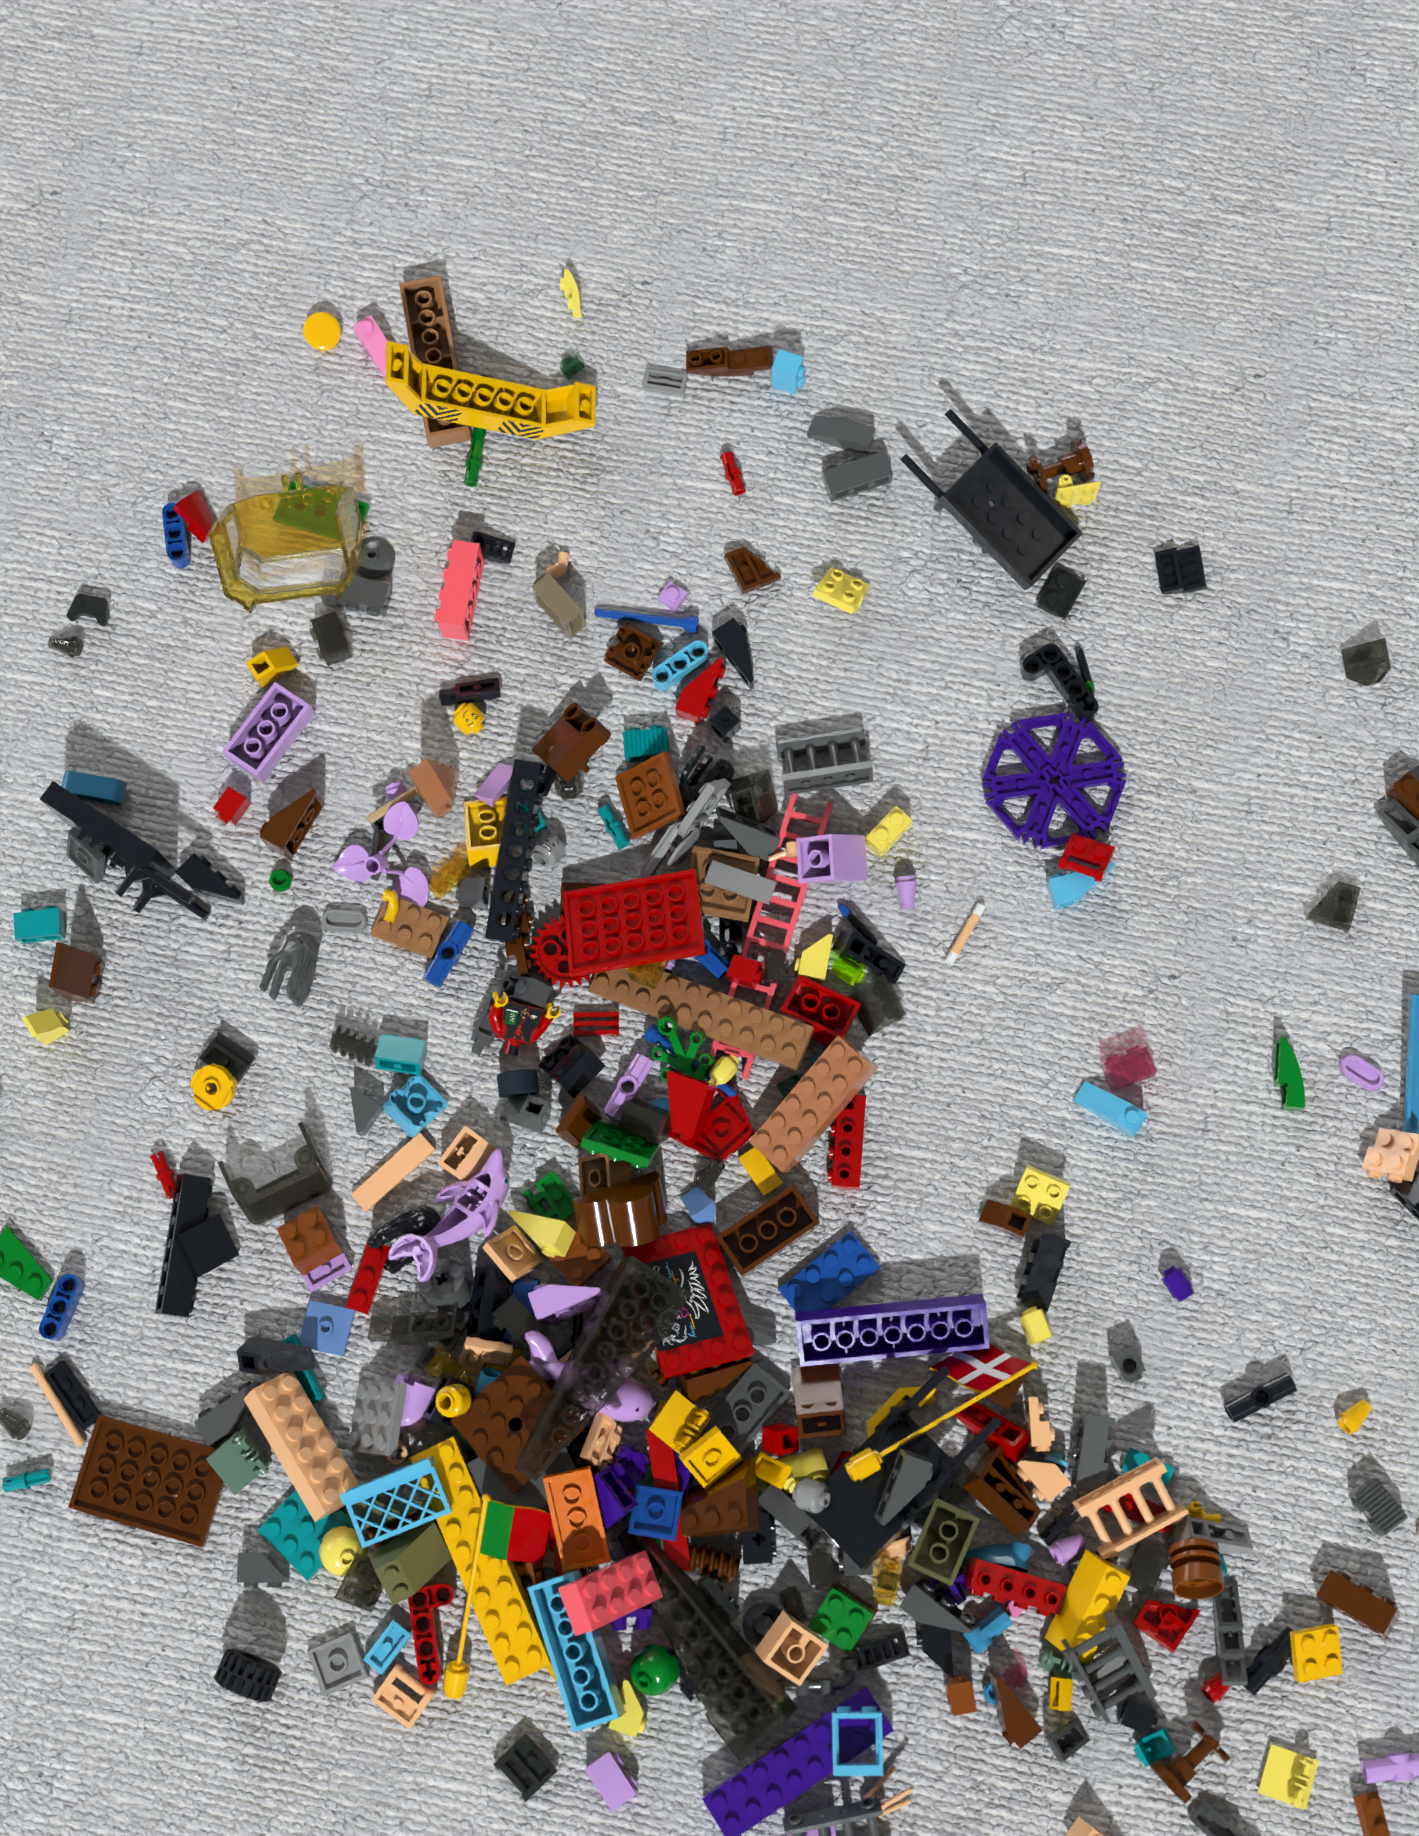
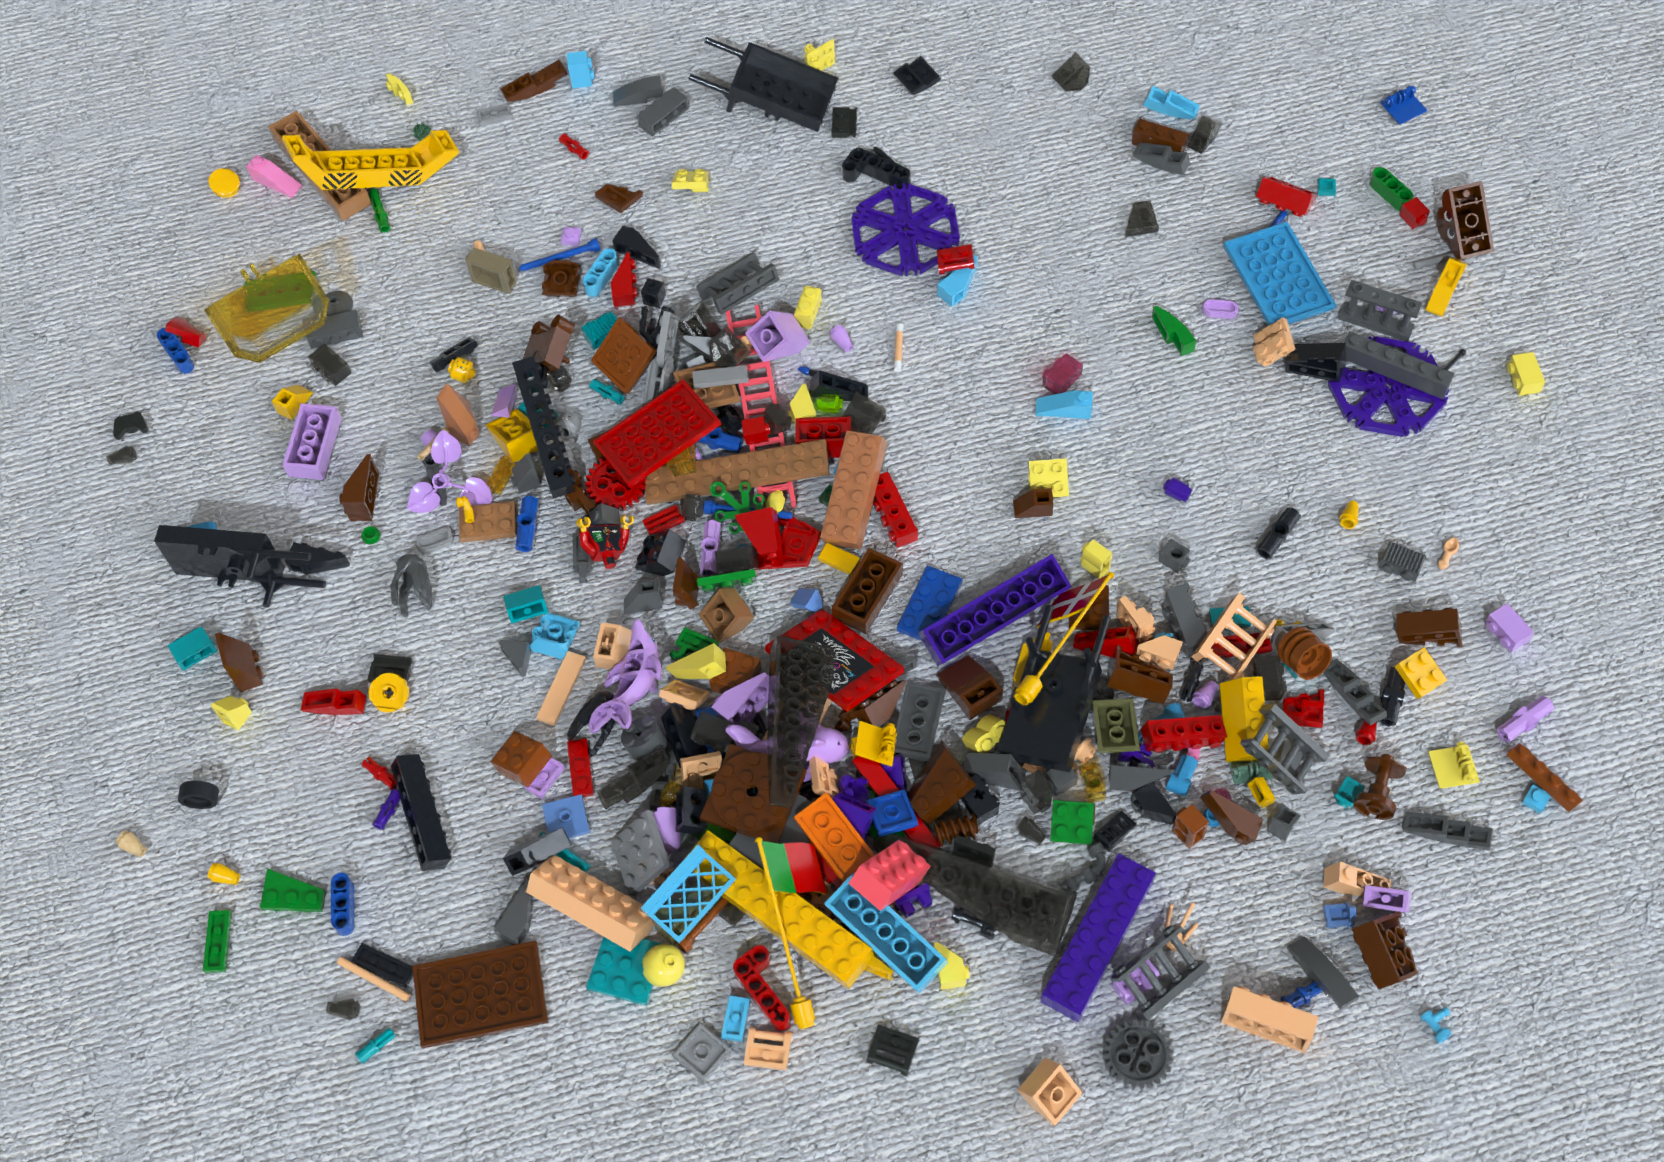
camera: 30 degrees left, 15 degrees down
(87, 859) = (207, 581): dark grey tile -> none
(152, 1222) = (381, 820): none -> dark purple pin
(154, 1066) = (334, 702): none -> red slope
(207, 1245) = (440, 800): black tile -> none
(231, 806) = (307, 502): red brick -> none
(239, 1461) = (545, 942): sand green hinge -> none
(247, 1675) = (634, 1089): black tyre -> none
(259, 1568) = (602, 1013): dark grey slope -> none
(287, 1192) = (481, 739): clear smoke windscreen -> none
(353, 1046) = (486, 615): clear smoke piece -> none
(360, 1585) = (692, 977): clear smoke hinge -> none
(410, 1561) = (720, 942): olive slope -> none
(453, 1400) = (695, 798): yellow head -> none
(460, 590) = (412, 292): coral brick -> none
(489, 555) = (410, 259): black slope -> none
(517, 1083) = (624, 580): black wheel -> none
(612, 1780) = (964, 1023): lavender brick -> none
(622, 1213) = (750, 622): reddish brown brick -> none
(632, 1025) = (691, 507): none -> clear smoke head
(653, 1670) = (953, 925): green cylinder -> none
(708, 1175) = (803, 574): clear smoke cone -> none
(710, 1457) = (912, 752): yellow plate -> none
(750, 1617) = (1023, 846): black tyre -> none
(766, 852) = (727, 349): none -> clear smoke slope
(772, 1470) = (963, 743): yellow tile -> none
(780, 1439) = (956, 721): red brick -> none
(791, 1648) = (1047, 855): light nougat brick -> none
(811, 1495) = (1002, 734): light grey head -> none
(857, 1769) = (1144, 907): medium azure window -> none
(905, 1482) = (1065, 681): dark grey slope -> none
(1042, 1271) = (1078, 520): black wedge -> none
(1073, 463) = (809, 34): reddish brown piece -> none
(1138, 1717) = (1324, 779): black brick -> none

